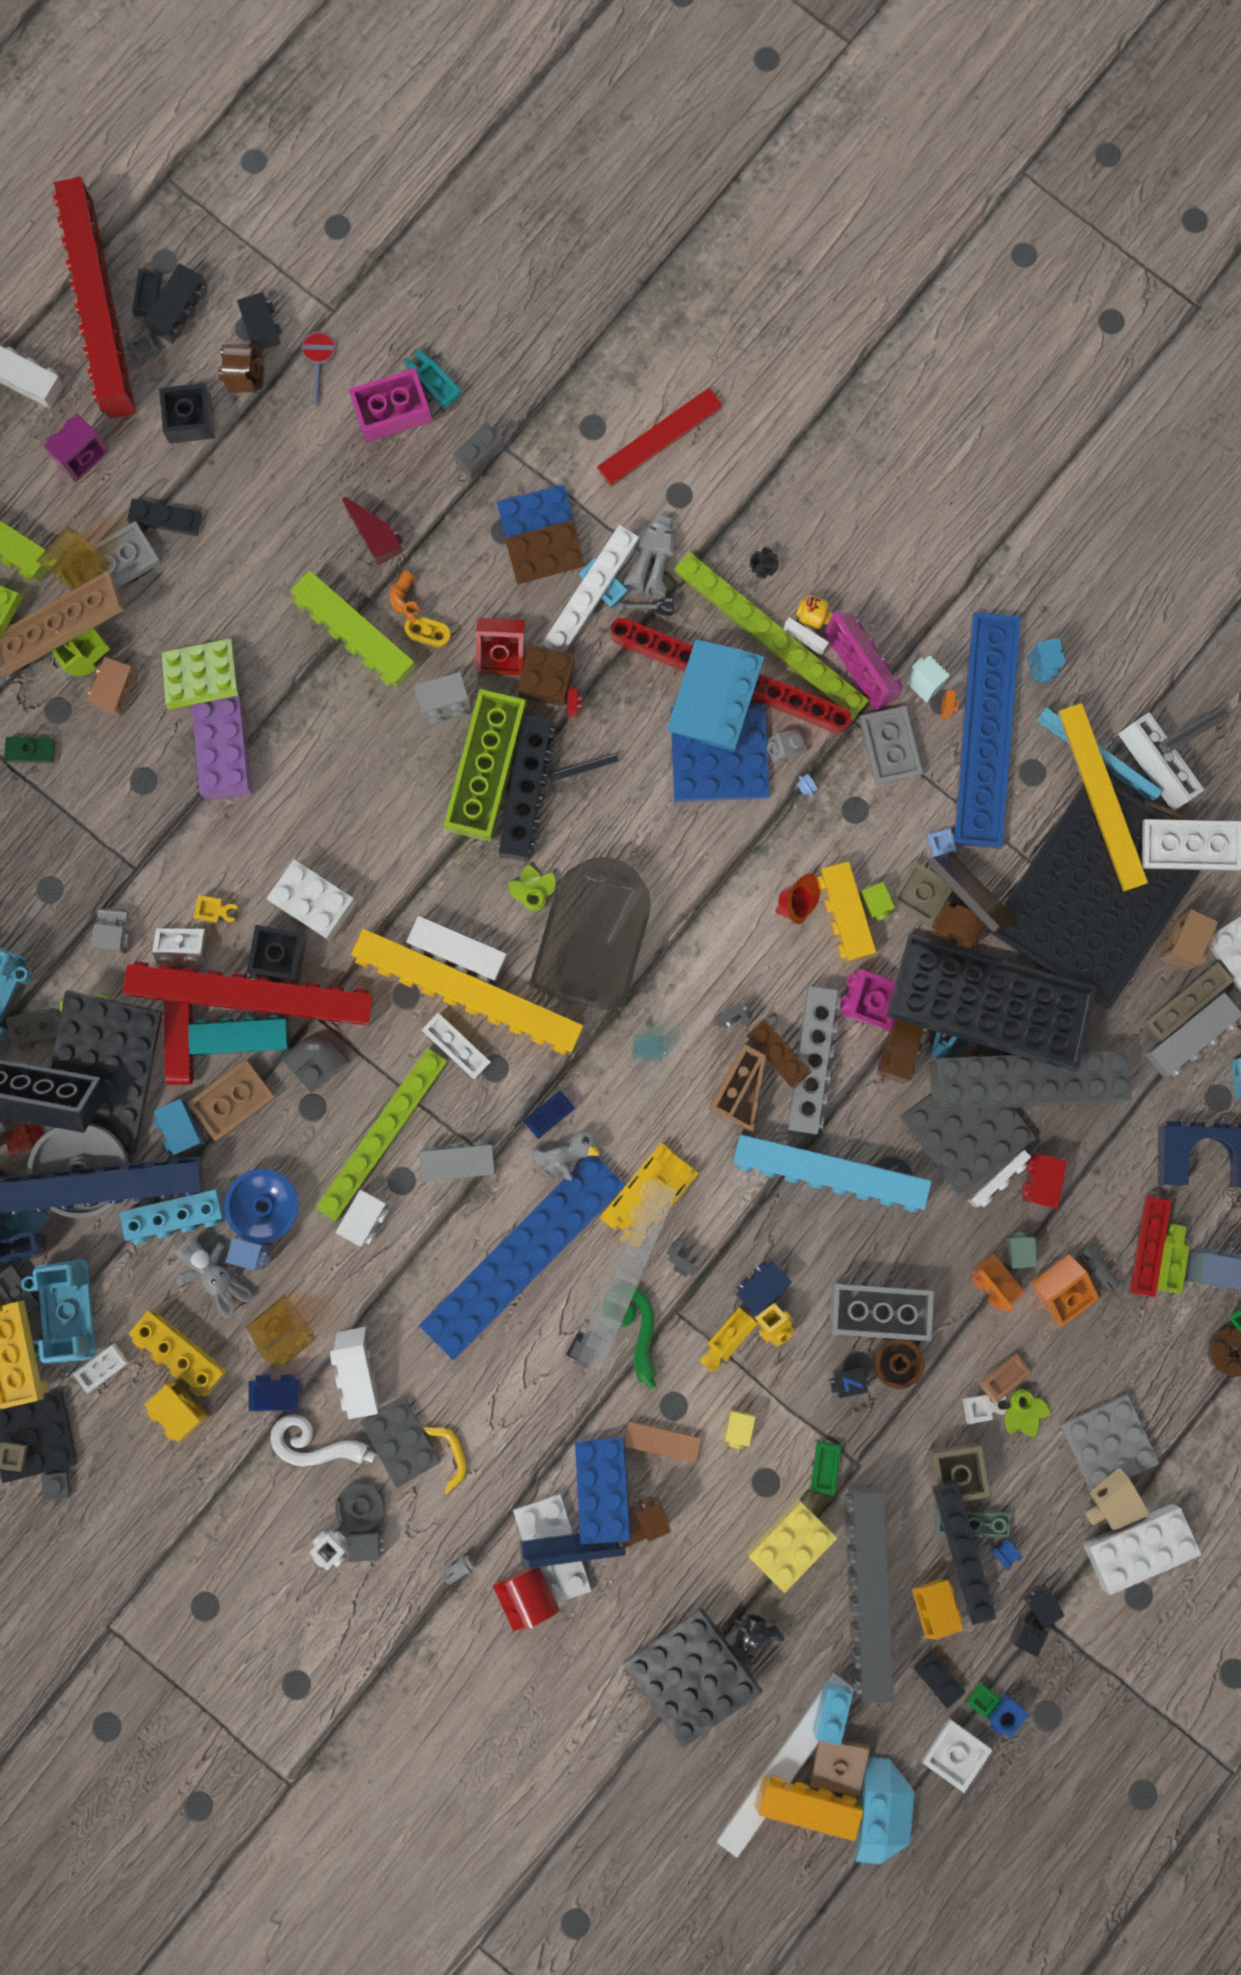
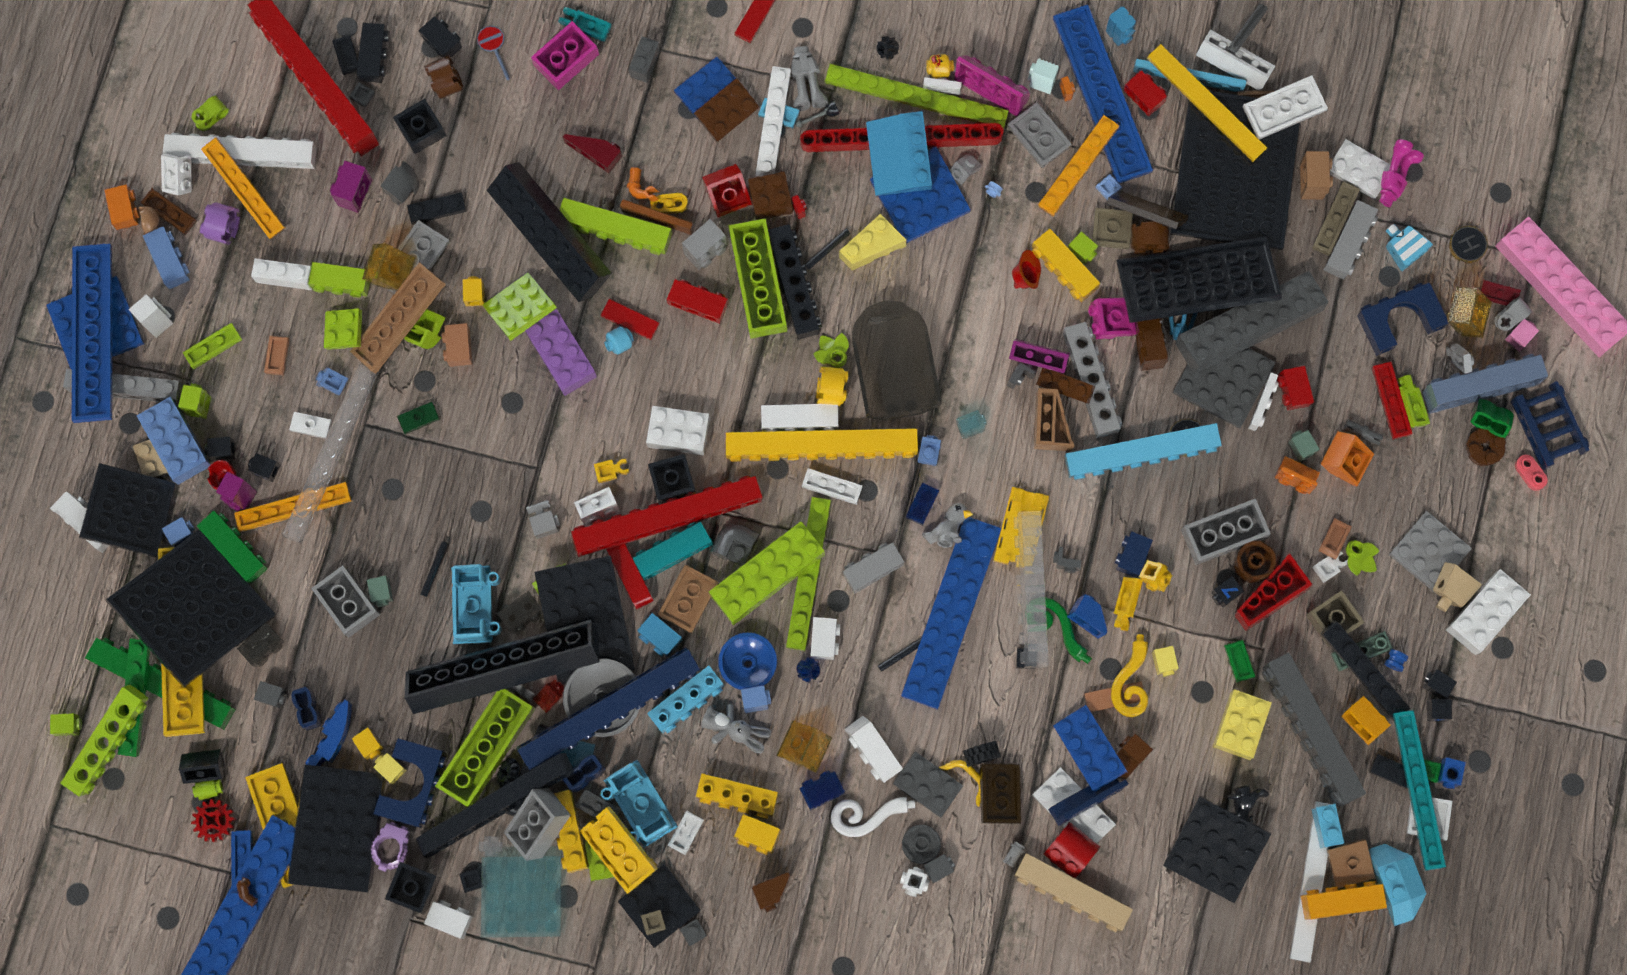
camera: 20 degrees left, 5 degrees down
(134, 468) = (400, 183): none -> dark grey brick
(158, 632) = (473, 291): none -> yellow brick
(158, 1484) = (771, 892): none -> reddish brown slope
(273, 602) = (548, 231): none -> black brick
(294, 764) = (618, 340): none -> medium azure head
(320, 746) = (630, 319): none -> red tile
(327, 1246) = (808, 669): none -> clear blue gear
(330, 1114) = (767, 573): none -> lime brick
(406, 640) = (656, 217): none -> dark orange tile
(406, 759) = (697, 300): none -> red brick
(440, 1277) = (900, 655): none -> black bar
(475, 1438) = (981, 753): none -> black tyre
(476, 1493) = (1000, 793): none -> dark brown plate
(504, 1647) = (1073, 892): none -> tan brick
(508, 930) = (831, 386): none -> yellow brick
(587, 1056) = (929, 450): none -> medium blue bracket
(636, 784) = (872, 242): none -> light yellow wedge
(676, 1334) = (1089, 616): none -> blue slope
(711, 1408) = (1139, 653): none -> yellow plant
(765, 1005) = (1039, 356): none -> magenta brick
(904, 1409) = (1278, 590): none -> red wedge
(918, 802) = (1078, 165): none -> light orange plate
(958, 1722) = (1419, 790): none -> teal plate
(1037, 752) = (1145, 93): none -> red brick

